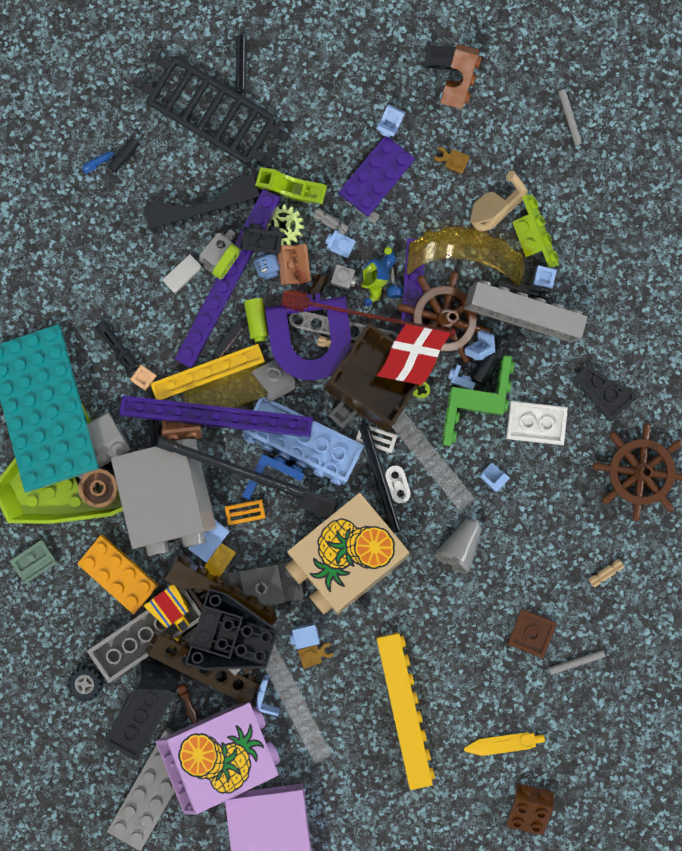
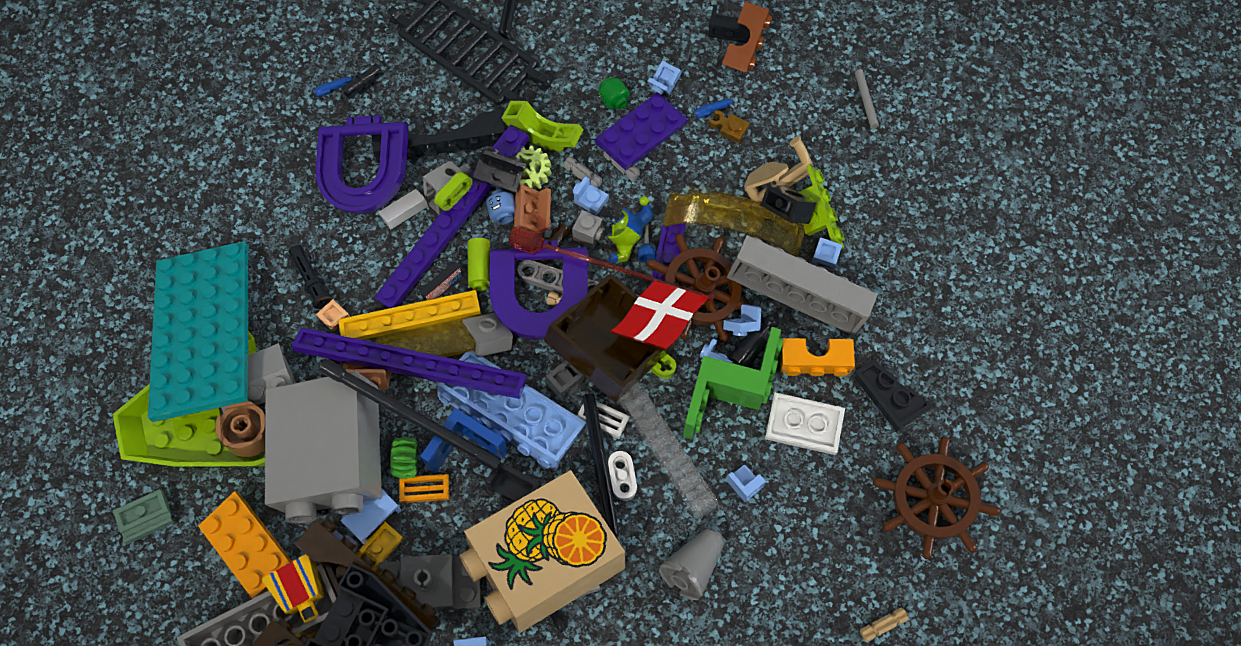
camera: 10 degrees right, 20 degrees down
(113, 243) = (391, 169): none -> dark purple piece
(226, 493) = (404, 457): none -> bright green gear
(348, 141) = (613, 93): none -> green head
(430, 146) = (707, 109): none -> blue piece
(509, 237) = (788, 204): none -> black brick
(559, 367) = (797, 360): none -> light orange arch

